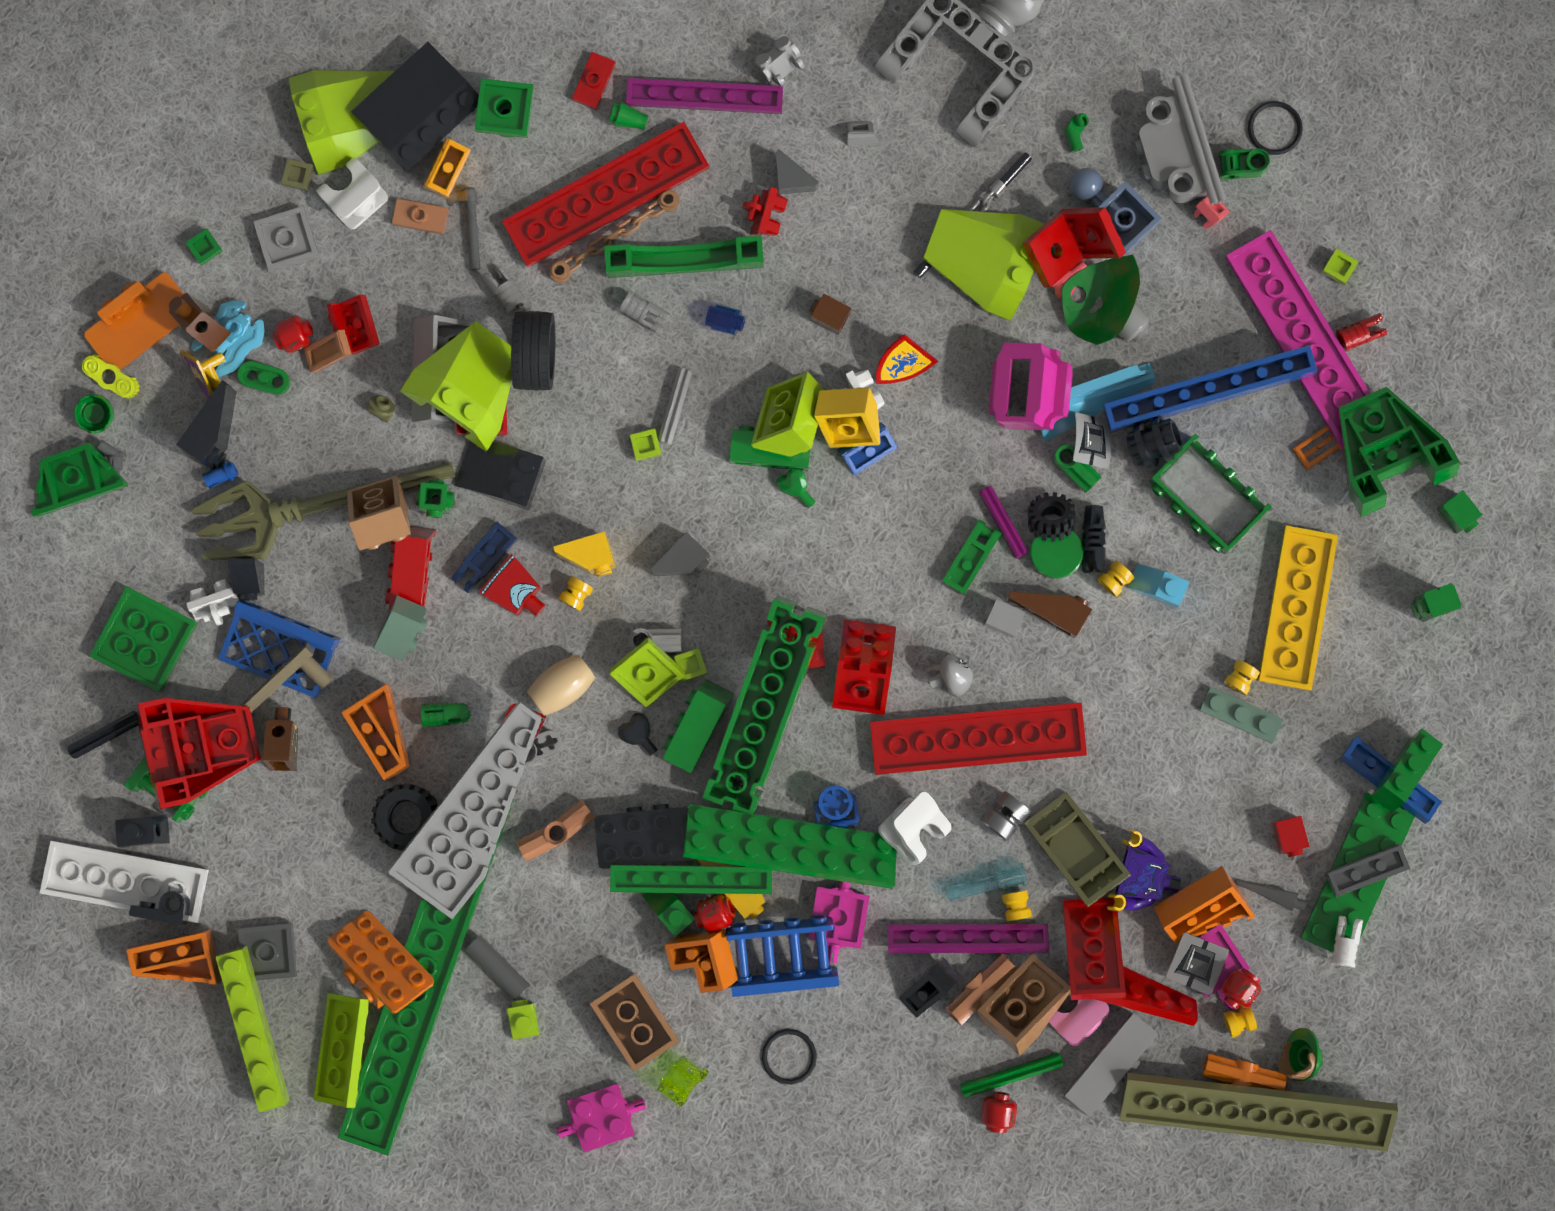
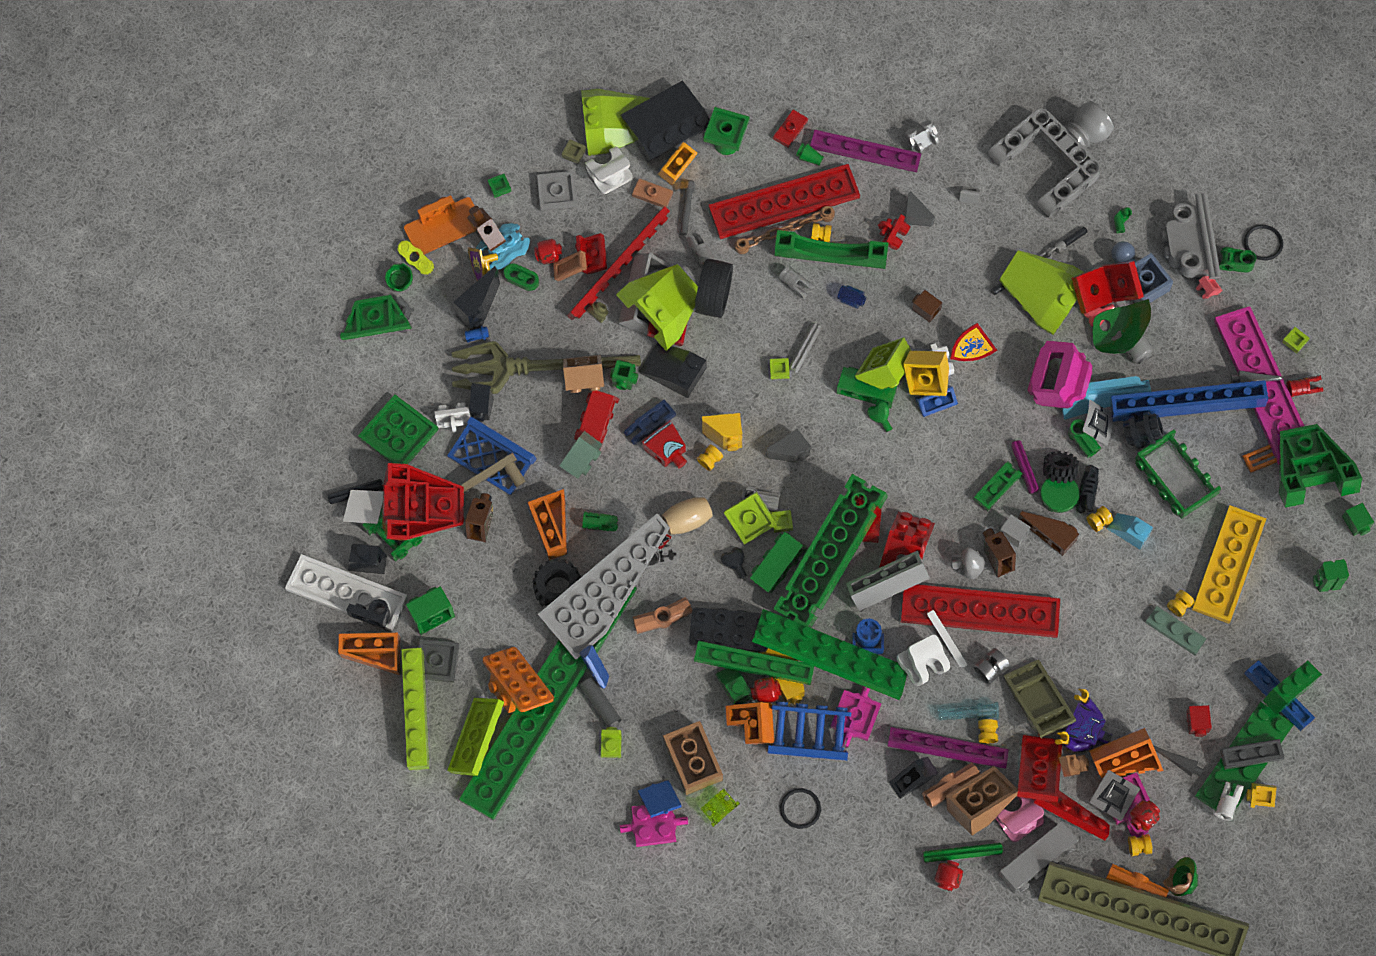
camera: 10 degrees right, 15 degrees down
(119, 759) = (363, 506): none -> white sticker
(242, 888) = (430, 610): none -> green brick
(399, 324) = (613, 271): none -> red plate
(480, 922) = (595, 666): none -> blue slope
(602, 1084) = (659, 798): none -> blue piece
(667, 233) = (821, 233): none -> yellow wheel
(848, 727) = (888, 580): none -> light grey brick
(940, 787) = (947, 639): none -> white sticker
(993, 662) = (999, 552): none -> reddish brown torso
(1136, 930) = (1074, 765): none -> medium nougat plate
(1282, 339) = (1250, 377): none -> dark grey piece
(1387, 922) = (1261, 795): none -> yellow bracket

